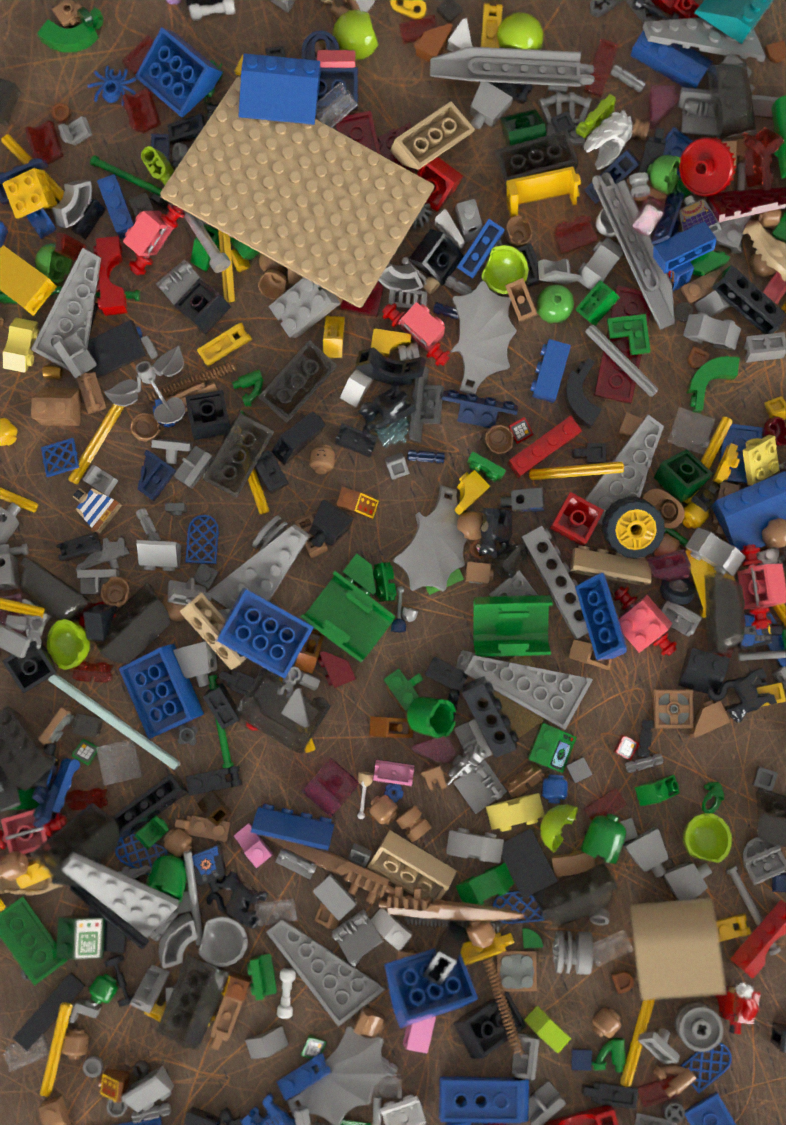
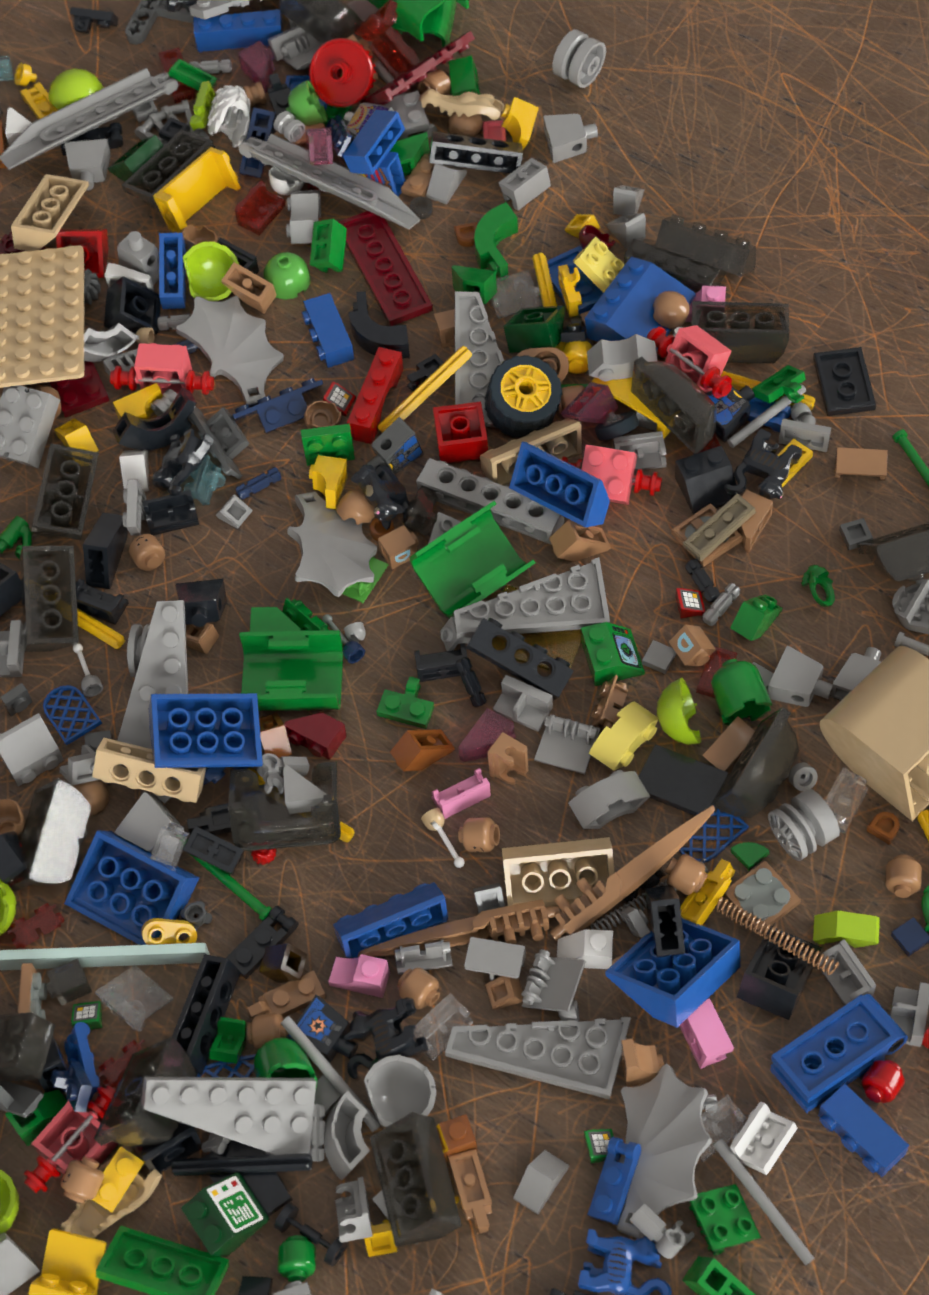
camera: 30 degrees left, 25 degrees down
(162, 738) = (170, 931): none -> yellow plate
(197, 688) = (170, 844): none -> clear brick
(228, 528) = (90, 684): none -> light grey hinge
(263, 976) = (478, 1105): green bracket -> none
(280, 881) = (419, 986): none -> medium nougat head
(287, 976) = (533, 1126): white piece -> none
(330, 787) = (401, 855): clear pink slope -> none
(335, 420) = (135, 512): none -> light grey plate
(357, 503) = (216, 565): dark orange slope -> none
(394, 787) = (474, 806): blue plate -> none
(413, 823) = (523, 824): medium nougat wheel -> none
(431, 716) = (455, 701): green cylinder -> none
(431, 936) = (636, 921): none -> light grey plate
(464, 764) = (524, 731): light grey hinge -> none
(479, 888) = (655, 822): green brick -> none
(555, 788) = (647, 686): blue head -> none
(557, 272) = (267, 243): light grey panel -> none
(602, 782) = (692, 645): none -> medium nougat brick
(608, 79) = (190, 75): none -> green tile
(610, 349) = (392, 275): light grey axle -> none
(634, 328) = (381, 241): green plate -> none
(669, 408) = (475, 280): none -> green slope
(682, 715) = (719, 527): none -> dark tan tile
(704, 328) = (461, 202): light grey brick -> none
(707, 838) = (845, 620): lime cylinder -> none

